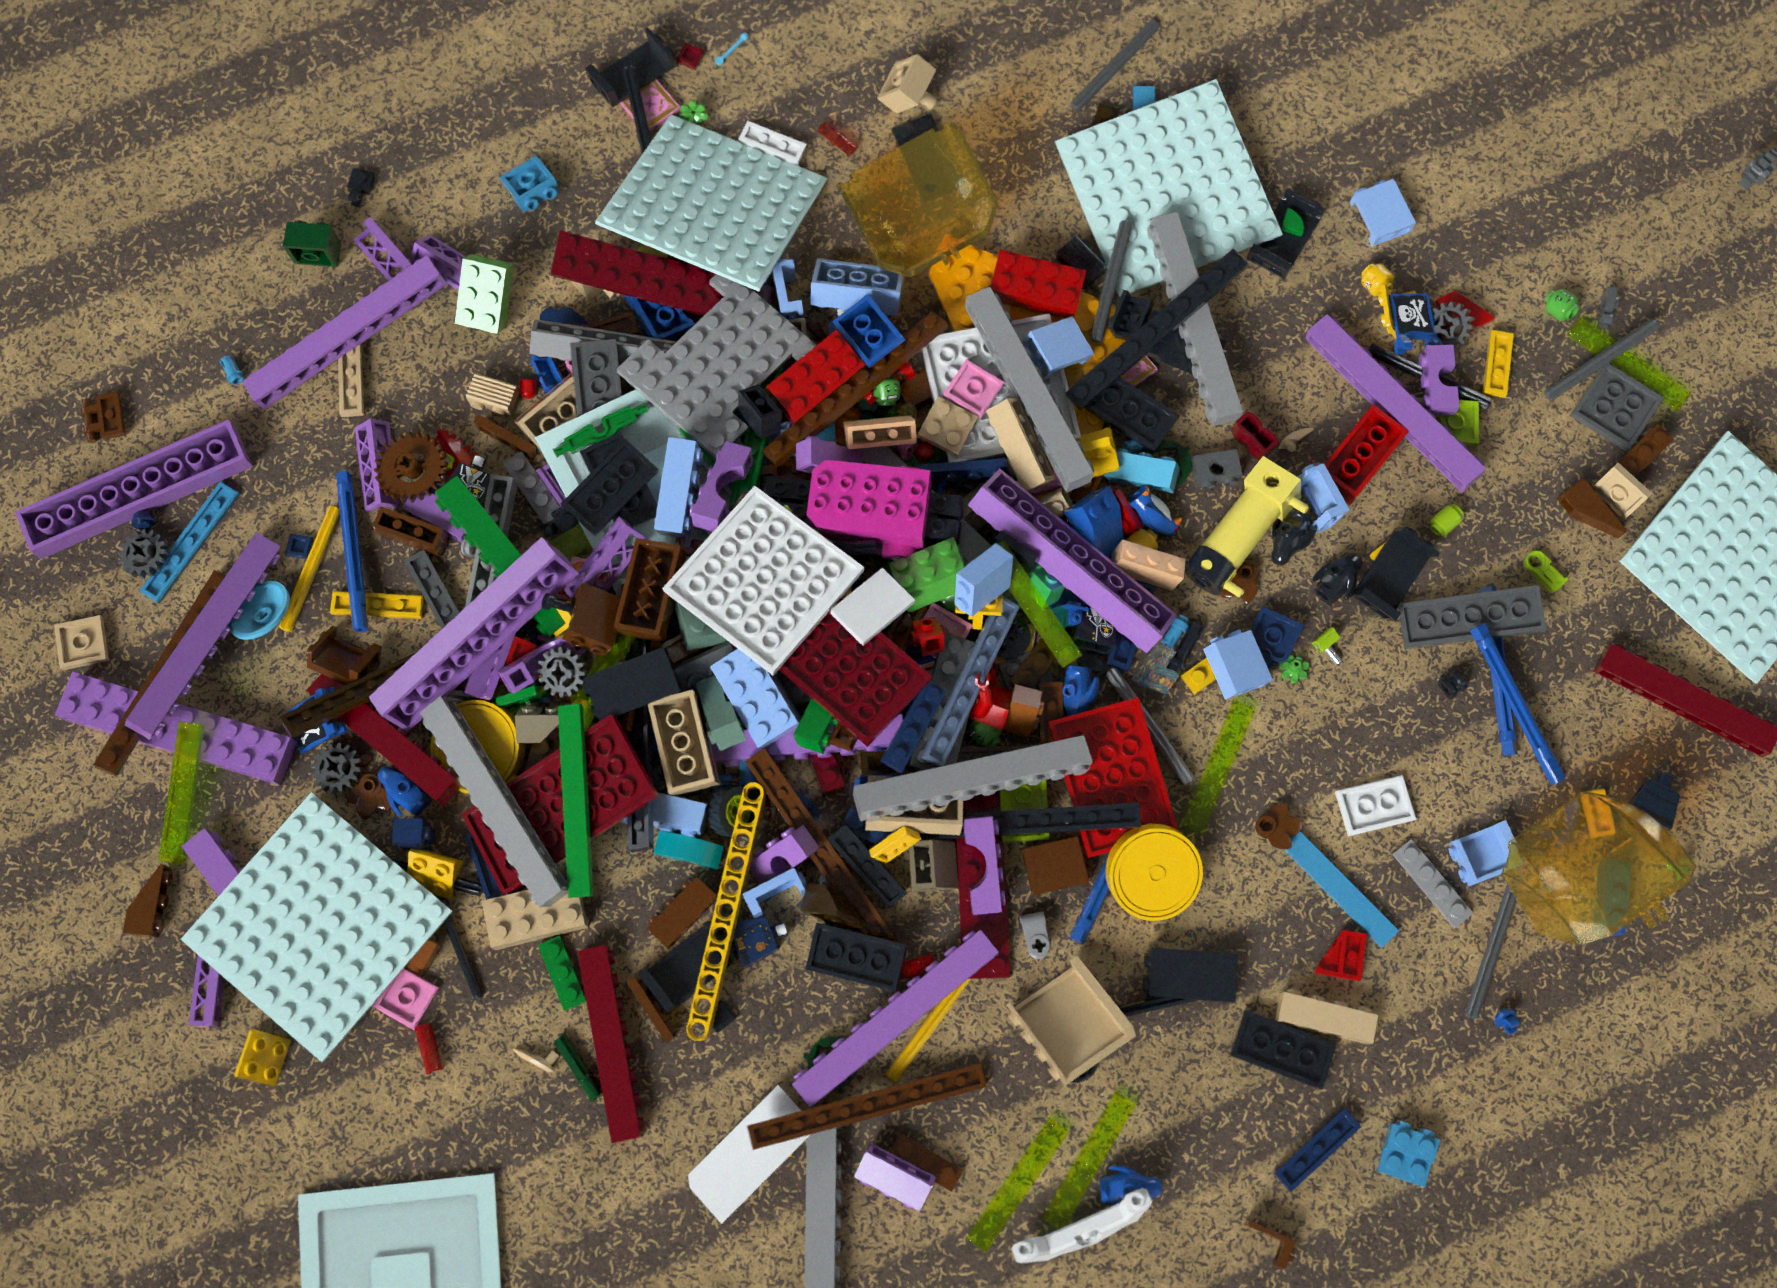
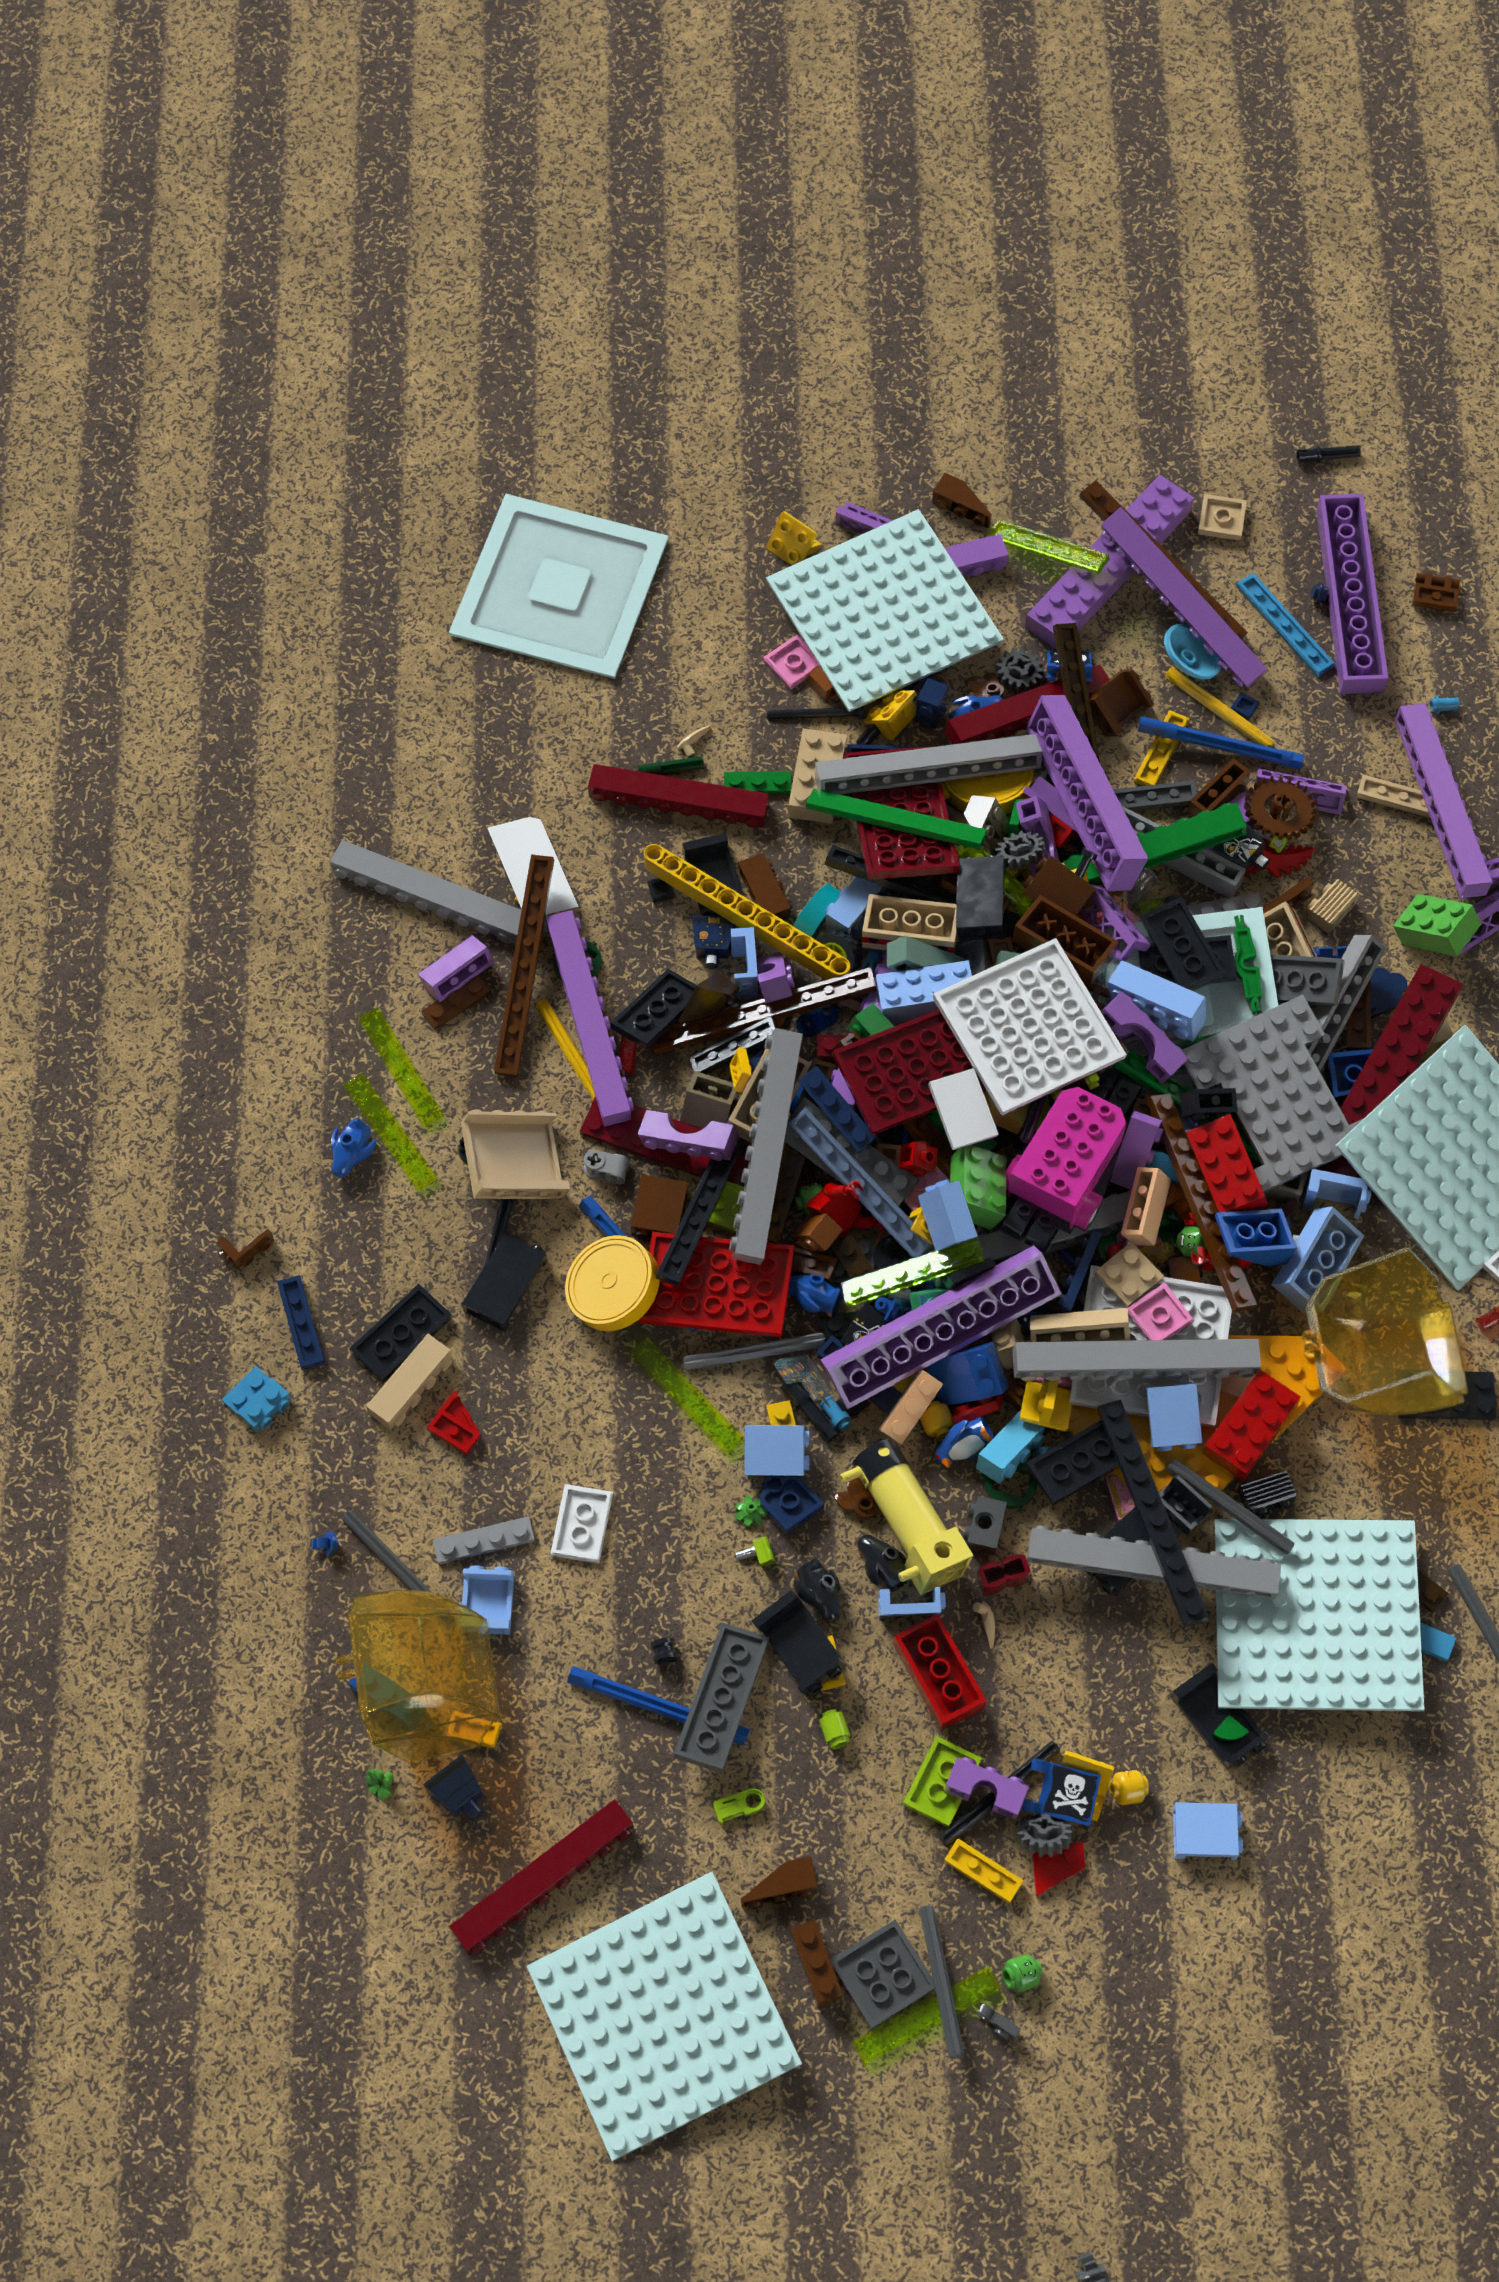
camera: 115 degrees right, 10 degrees down
(152, 546) = (1286, 584): dark grey gear -> none
(427, 1065) = (747, 660): red piece -> none
(528, 388) = (1328, 939): red piece -> none
(652, 1009) = (674, 838): reddish brown plate -> none
(1085, 1231) = (334, 1087): white helmet -> none
(1282, 826) = (602, 1424): reddish brown plate -> none
(1341, 890) = (521, 1452): dark azure tile -> none
(1389, 395) = (981, 1732): medium lavender brick -> none
(1539, 746) = (614, 1697): blue piece -> none
(1621, 491) = (779, 1919): tan plate -> none

